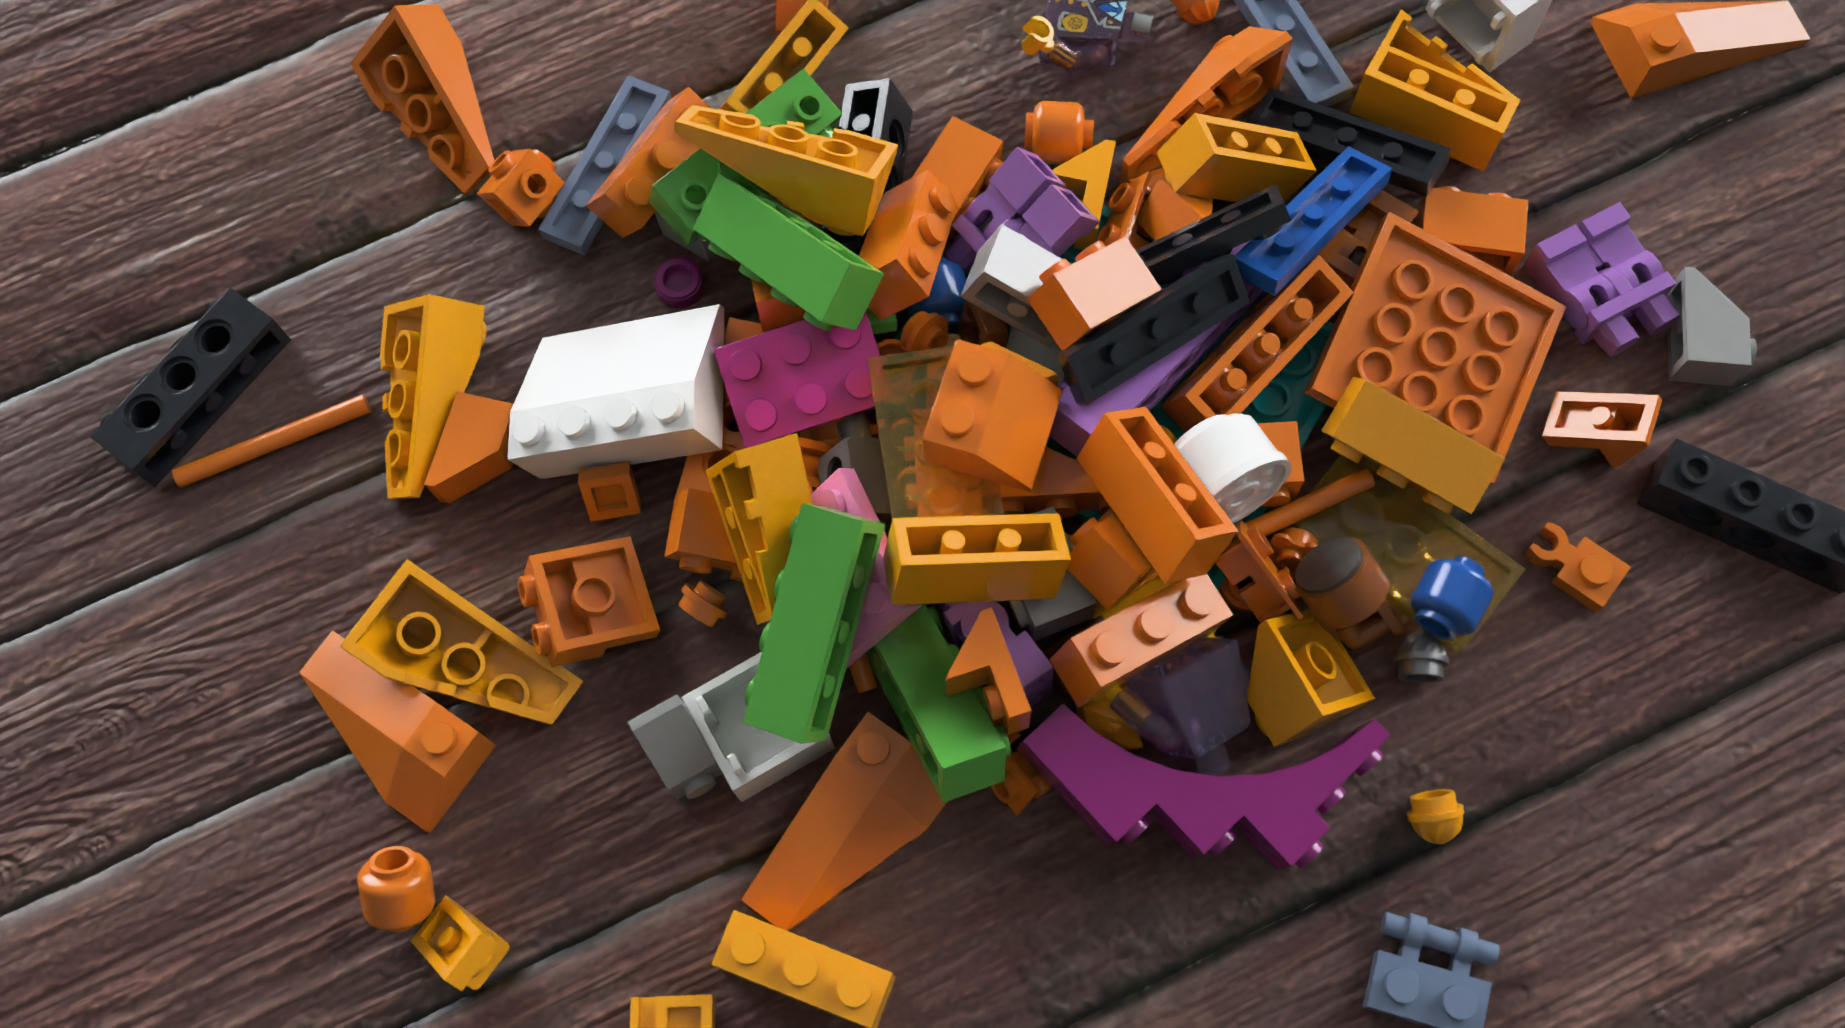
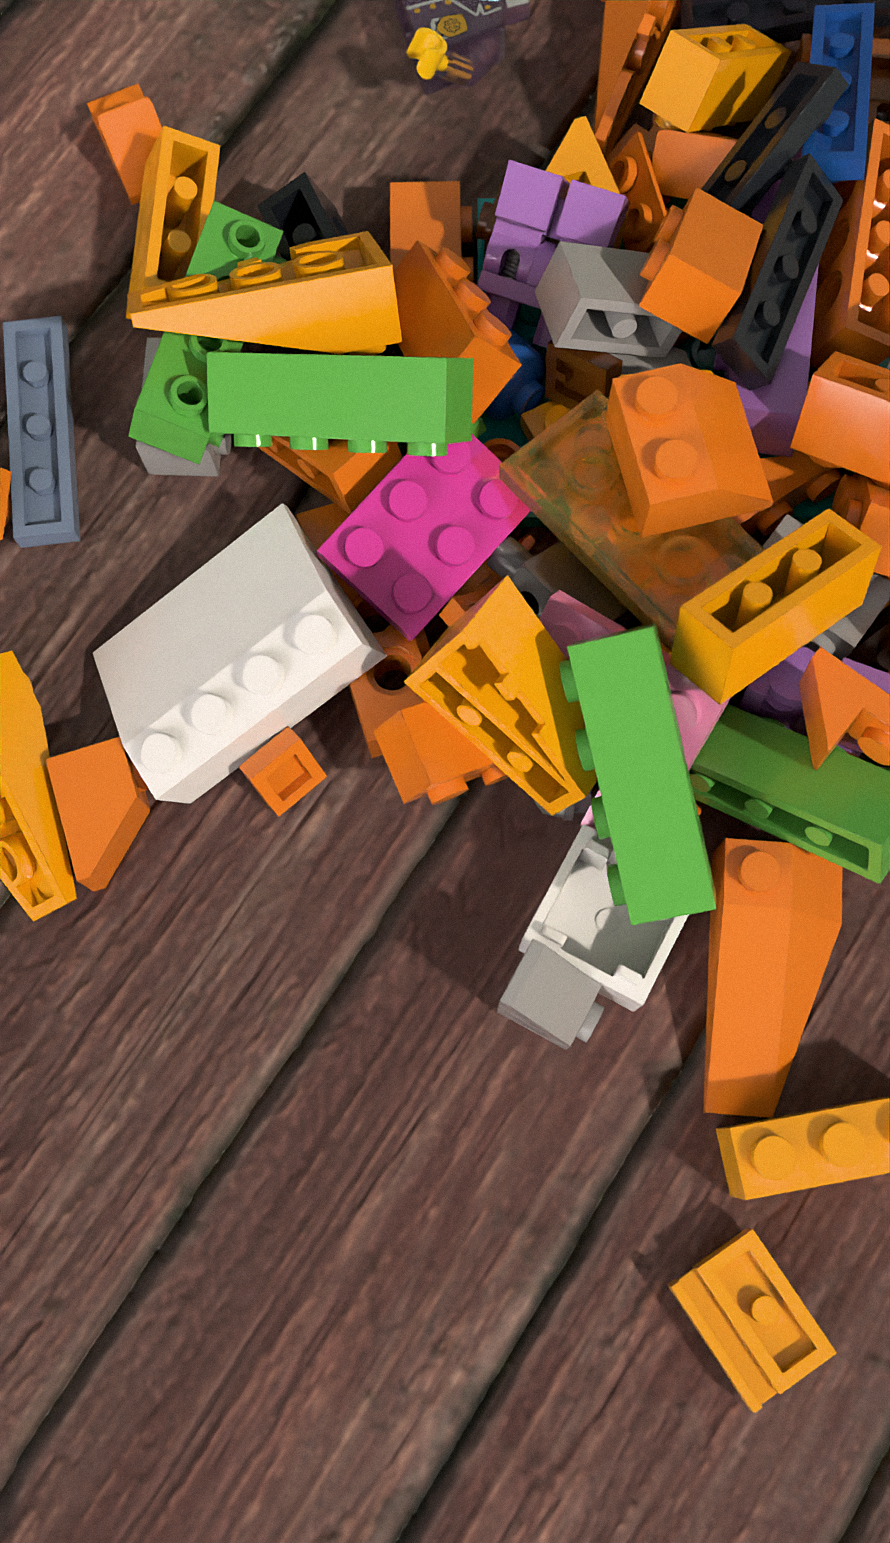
camera: 35 degrees left, 5 degrees up
(396, 889) = (342, 1337): orange head -> none
(399, 735) = (223, 1168): orange wedge -> none
(446, 645) = (214, 1040): light orange wedge -> none
(459, 945) = (447, 1352): light orange slope -> none
(587, 600) = (337, 900): orange plate -> none
(625, 194) = (98, 398): orange brick -> none
(679, 282) = (203, 513): magenta tile -> none
(703, 603) = (462, 830): orange plate -> none
(925, 332) = (525, 414): orange plate -> none
(1058, 131) = (497, 139): orange head -> none

